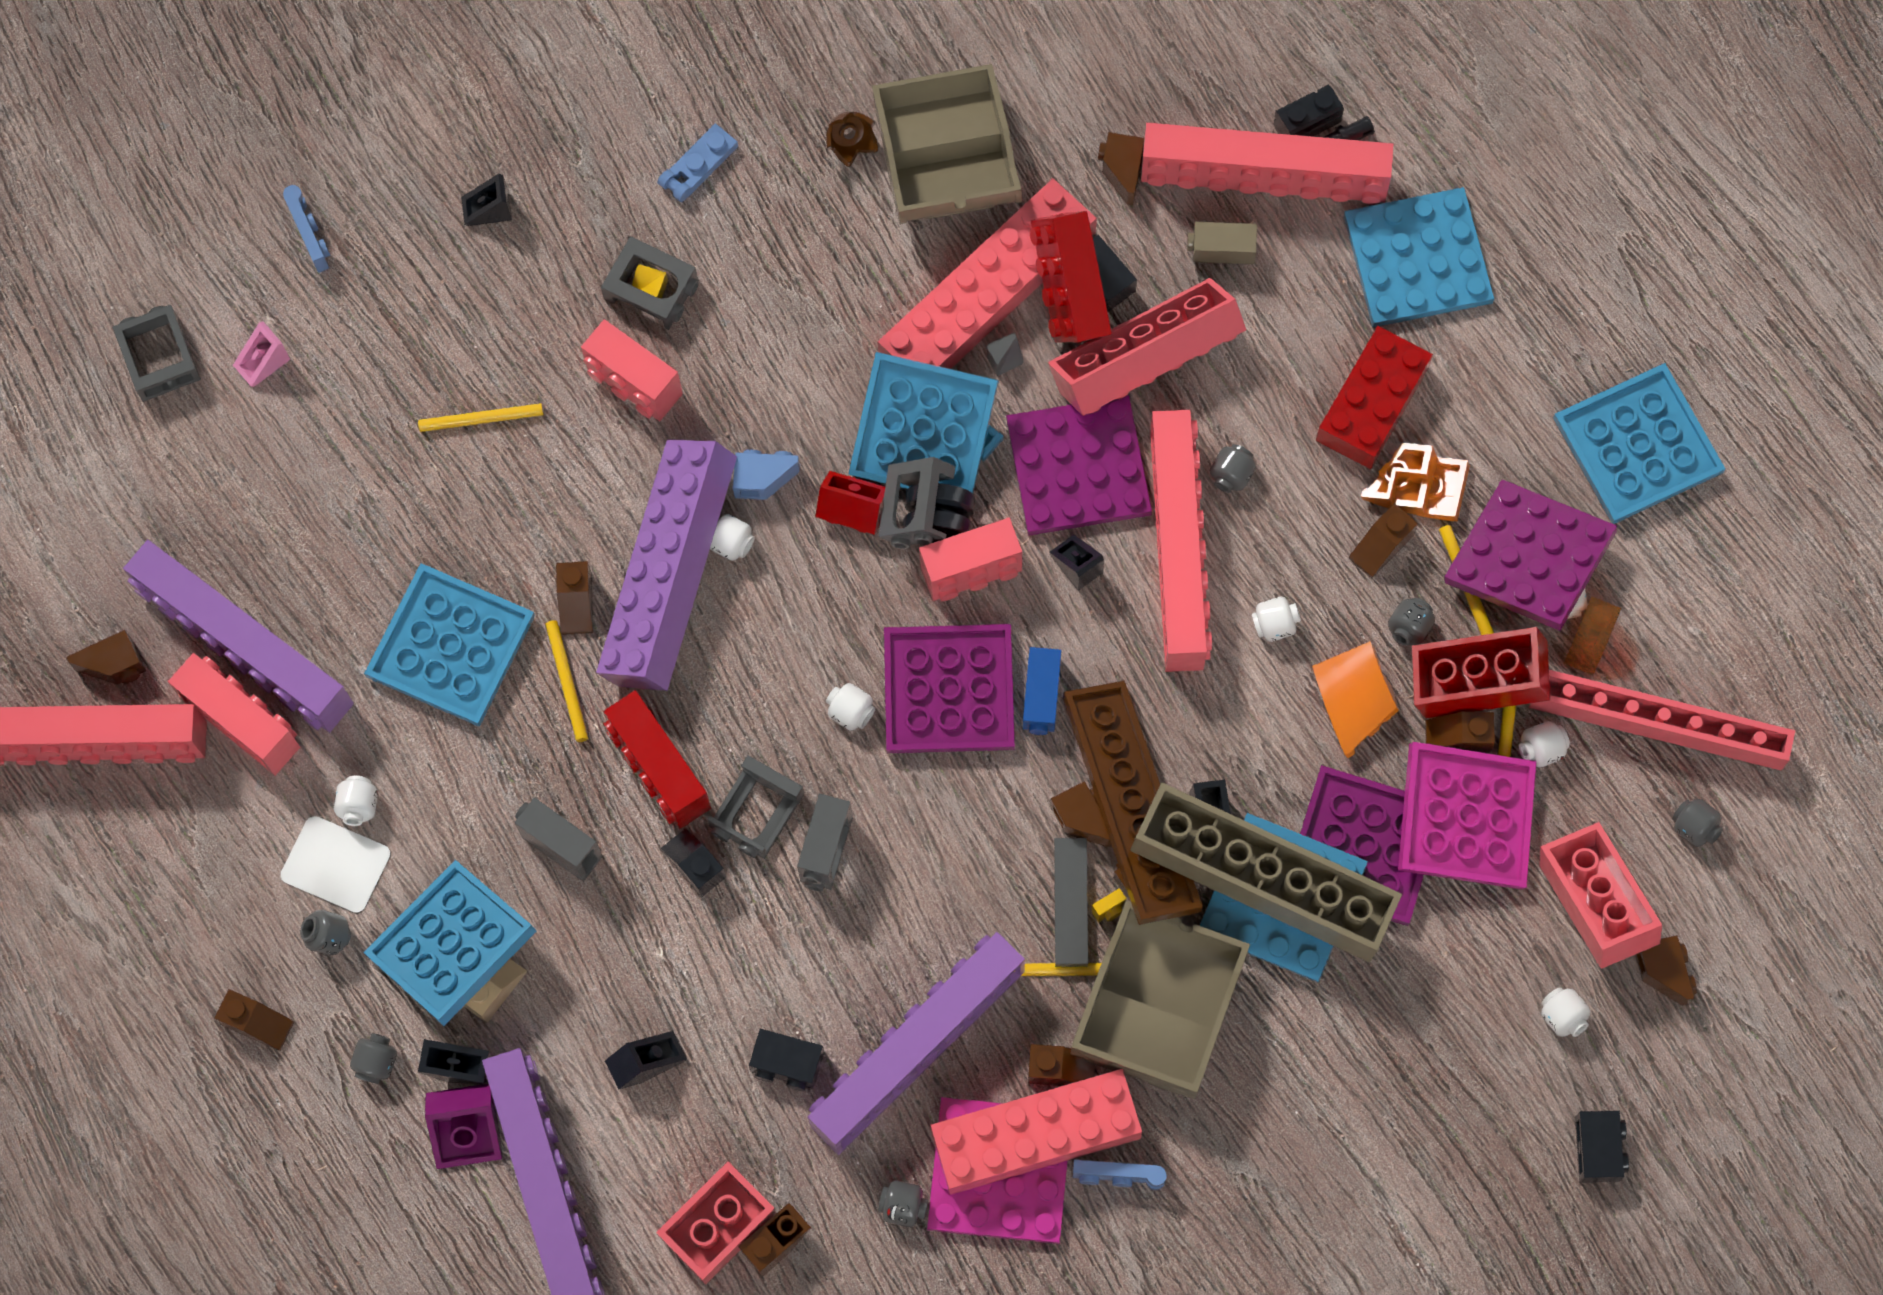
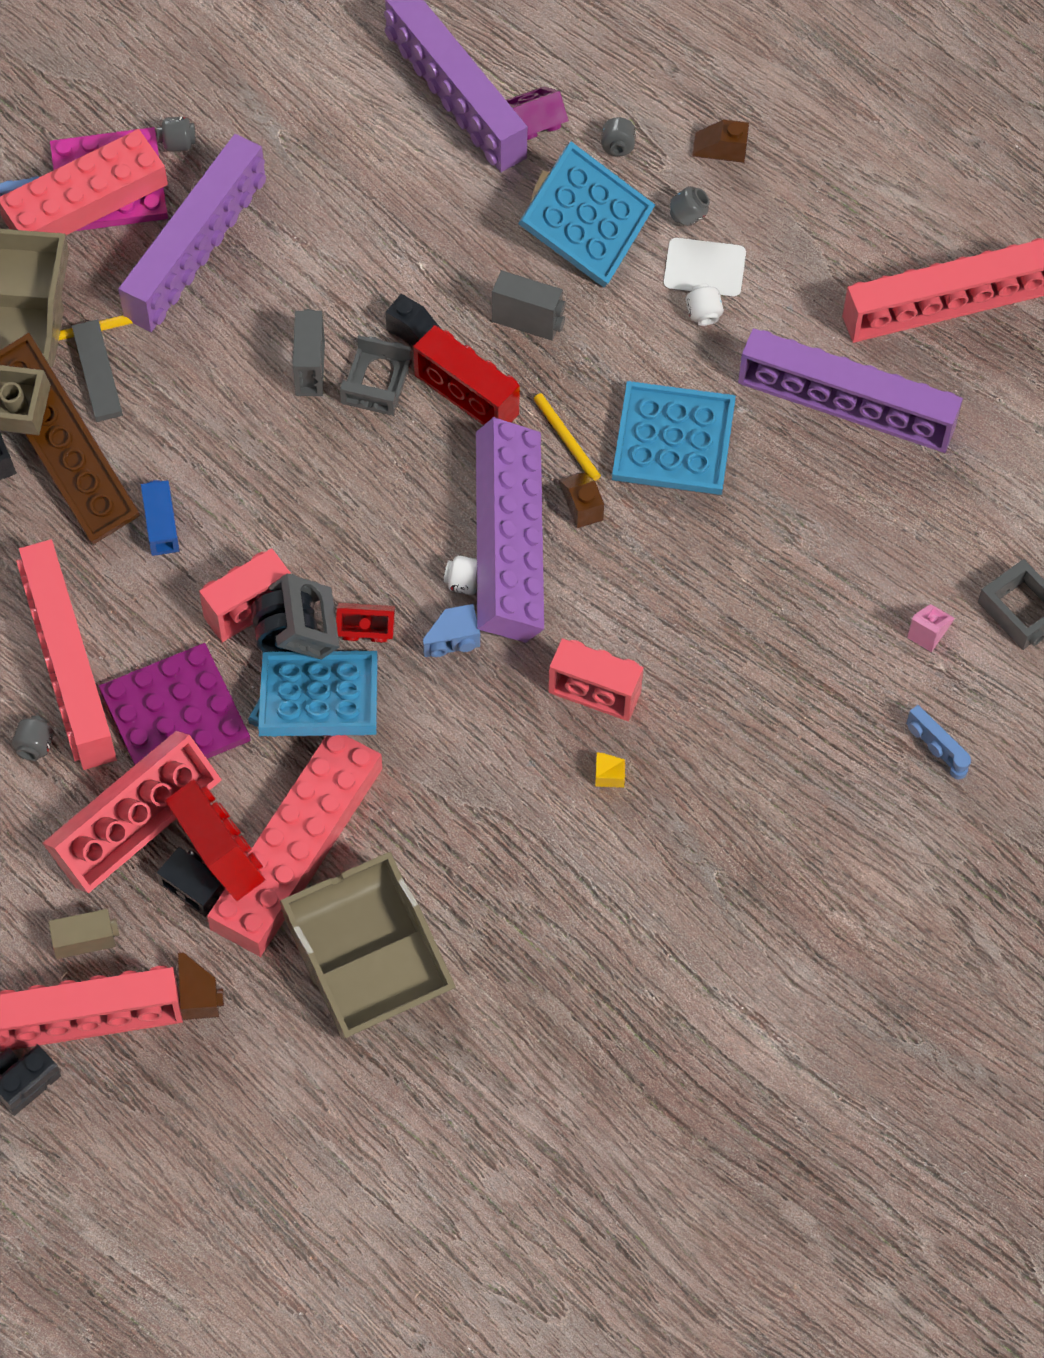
camera: 160 degrees right, 10 degrees down
(110, 659) = (949, 358): reddish brown slope -> none
(235, 714) = (827, 327): coral brick -> none
(452, 1062) = (550, 142): black slope -> none
(480, 417) = (718, 626): yellow bar -> none
(487, 203) = (782, 806): black slope -> none
(645, 1059) = (406, 183): black slope -> none
(666, 309) = (583, 781): dark grey panel -> none
(698, 162) = (602, 898): medium blue plate -> none
(716, 1222) = (315, 87): coral brick -> none
(775, 1239) = (270, 85): reddish brown slope -> none
(786, 1060) = (296, 208): black brick -> none
(850, 706) = (320, 468): white head -> none
(858, 140) = (469, 951): reddish brown piece -> none
(948, 688) = (240, 502): magenta plate -> none
(1004, 354) = (268, 789): dark grey slope -> none
(1057, 1066) = (84, 249): reddish brown slope -> none
(1078, 561) = (153, 626): black slope -> none
(1080, 814) = (108, 430): reddish brown slope -> none
(1109, 906) = (66, 369): yellow plate -> none

